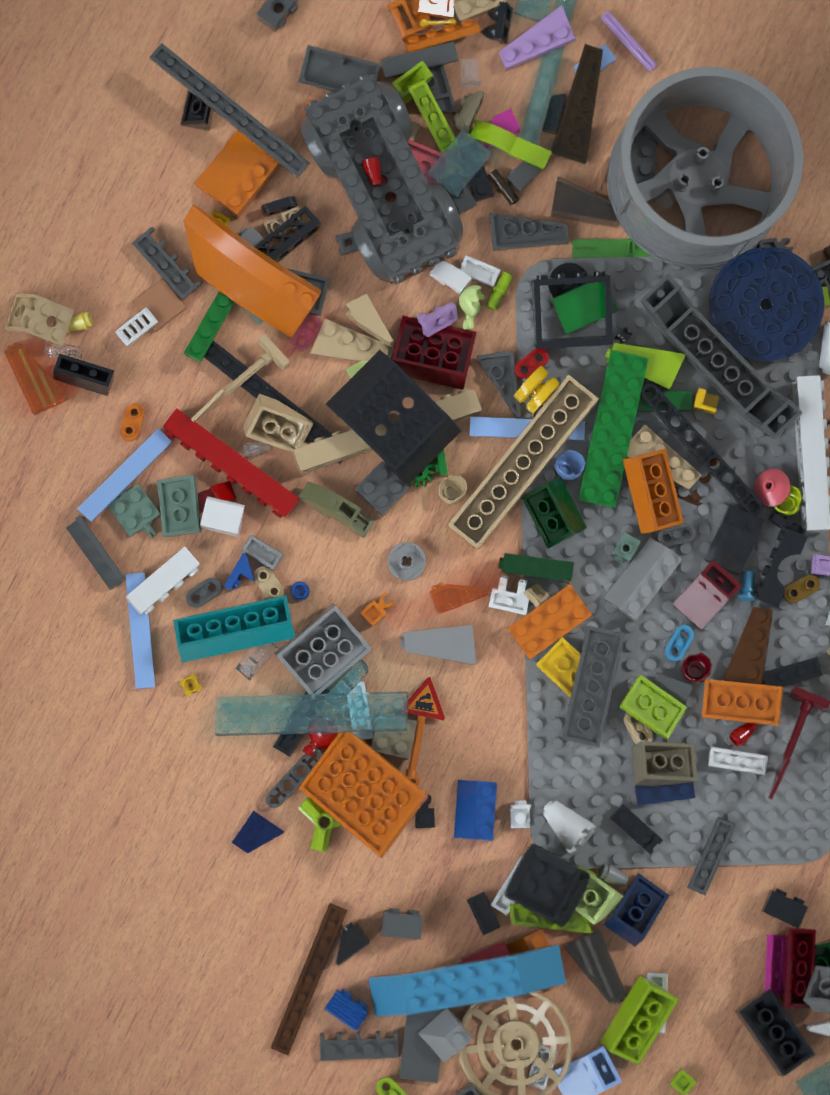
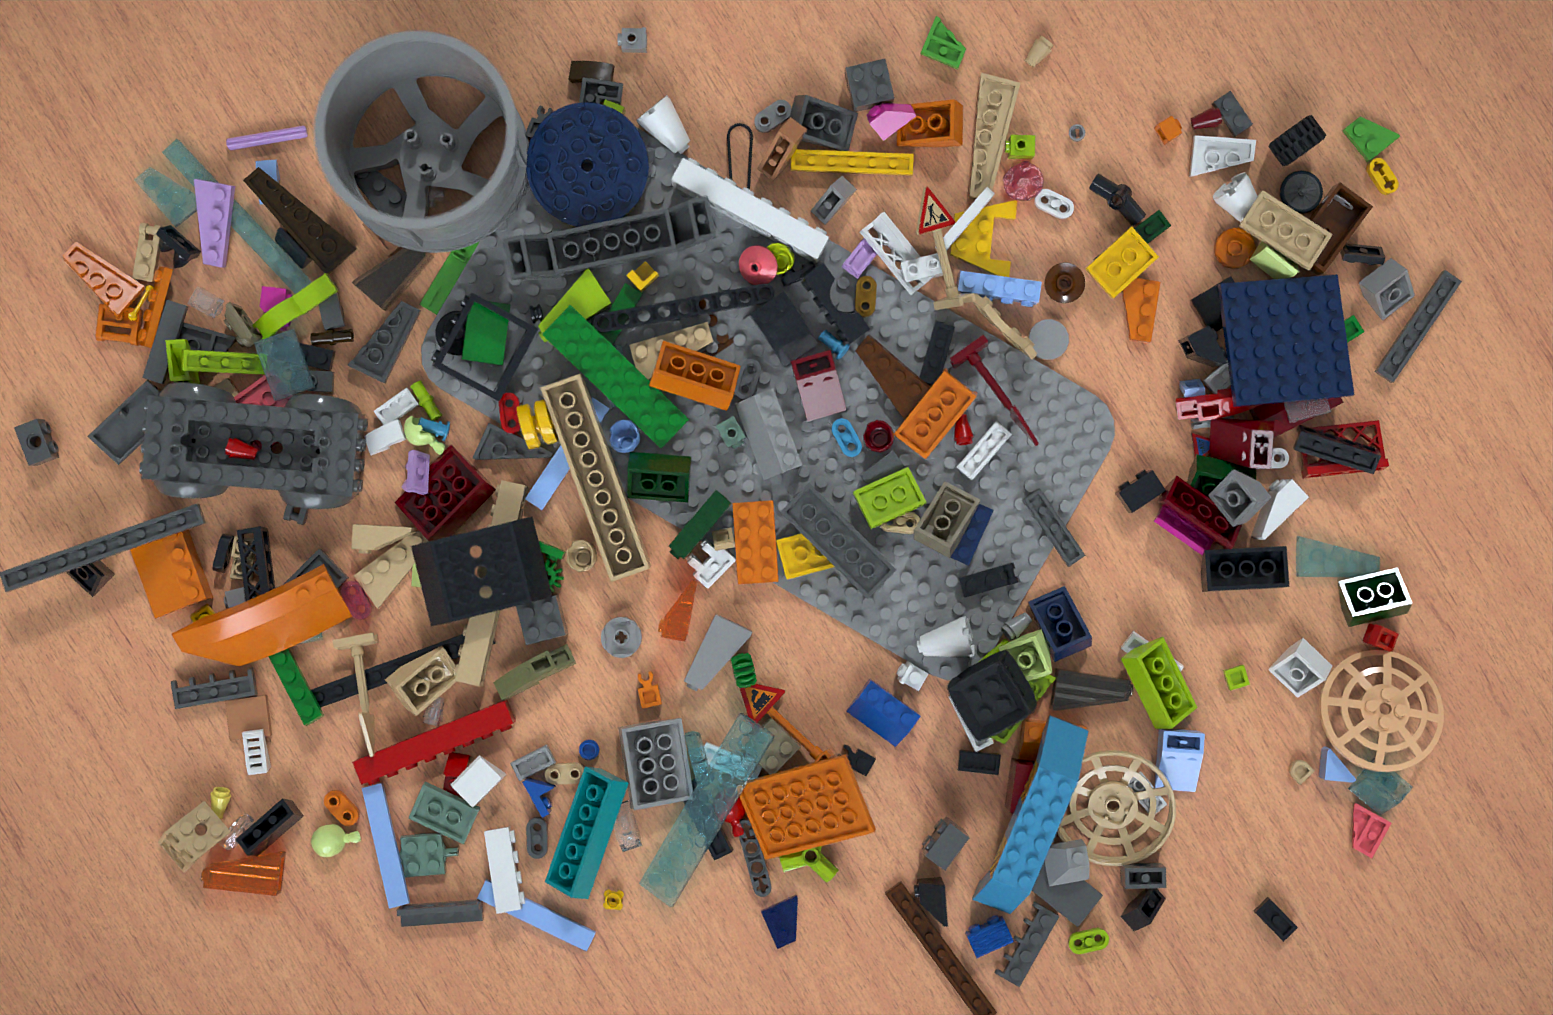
camera: 60 degrees left, 5 degrees up
(102, 429) = (331, 839): none -> yellowish green hair
(441, 675) = (743, 670): none -> green gear
(482, 311) = (435, 427): none -> dark azure pin

